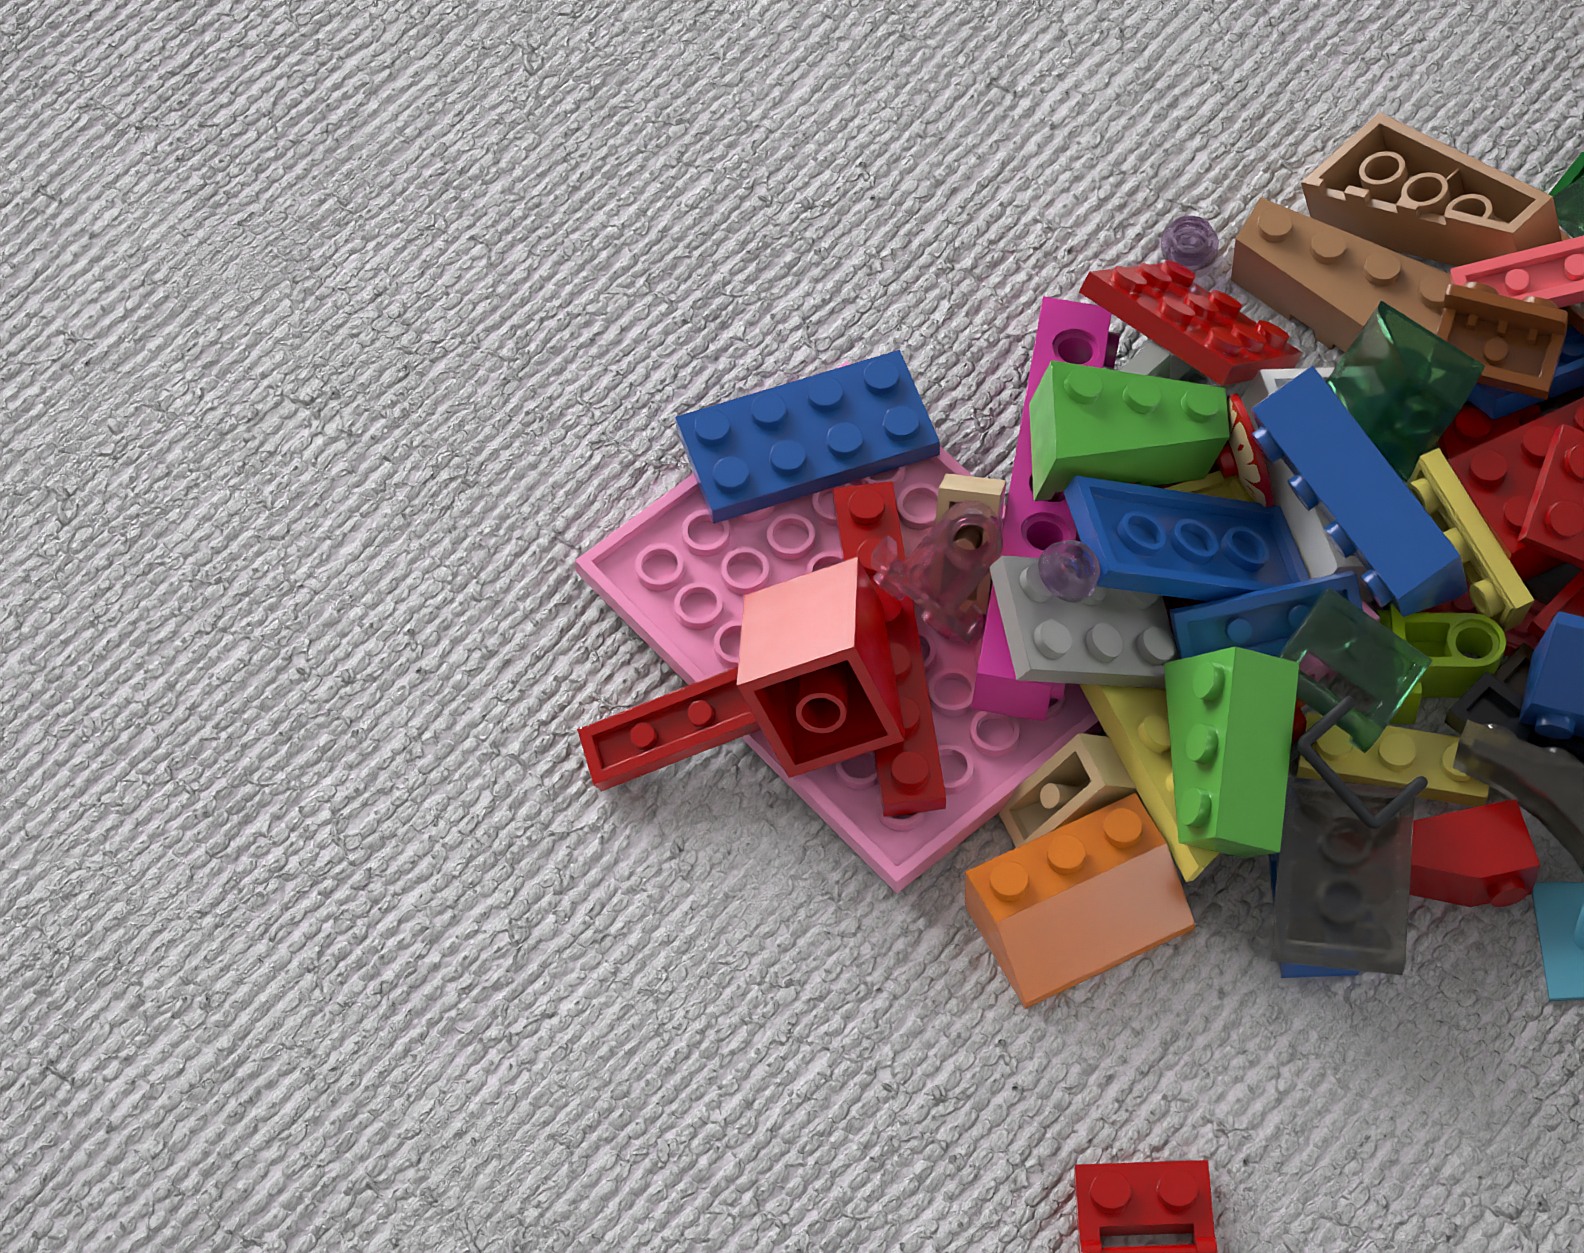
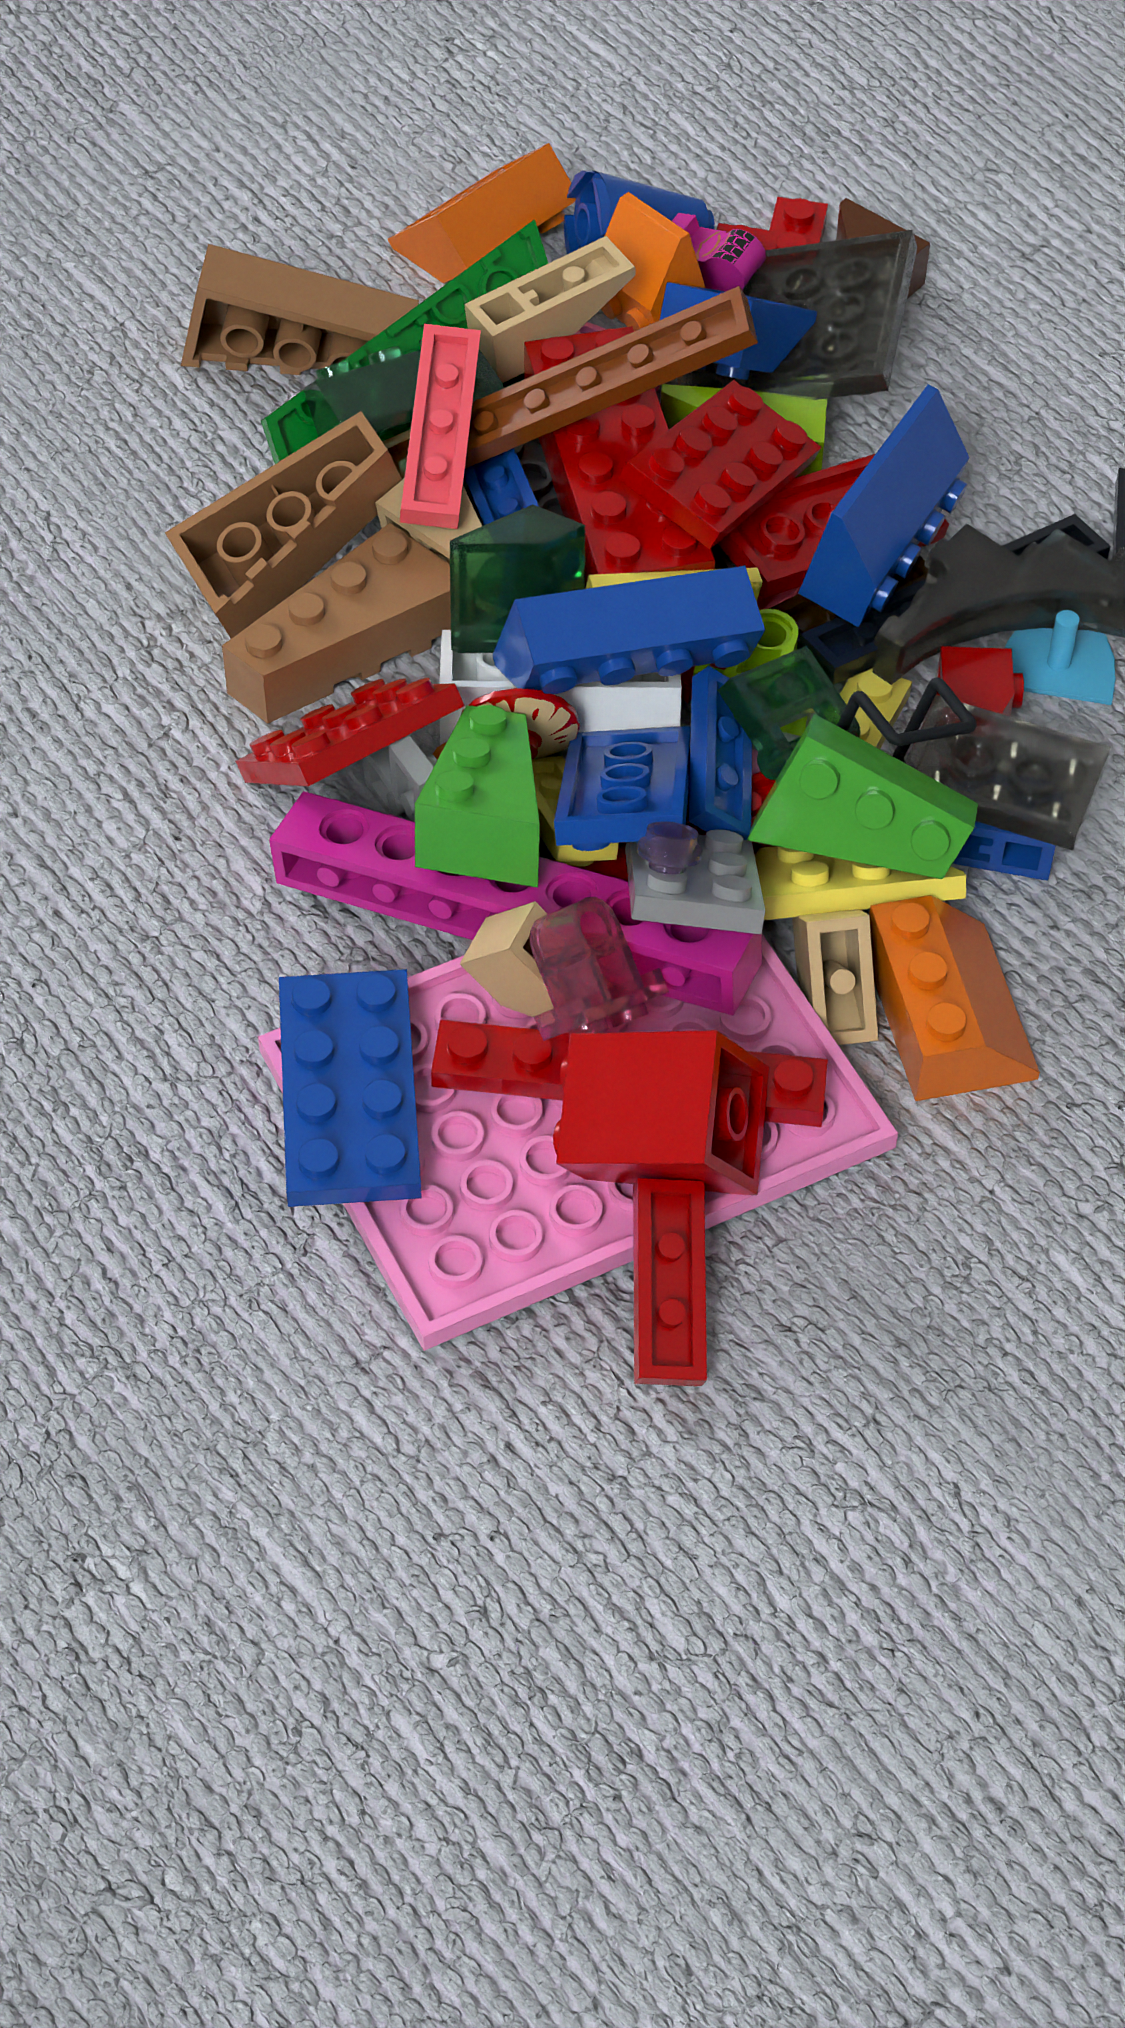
camera: 80 degrees left, 5 degrees down
(1190, 232) = (221, 734): clear purple plate -> none
(1507, 335) = (498, 483): dark orange bracket -> none

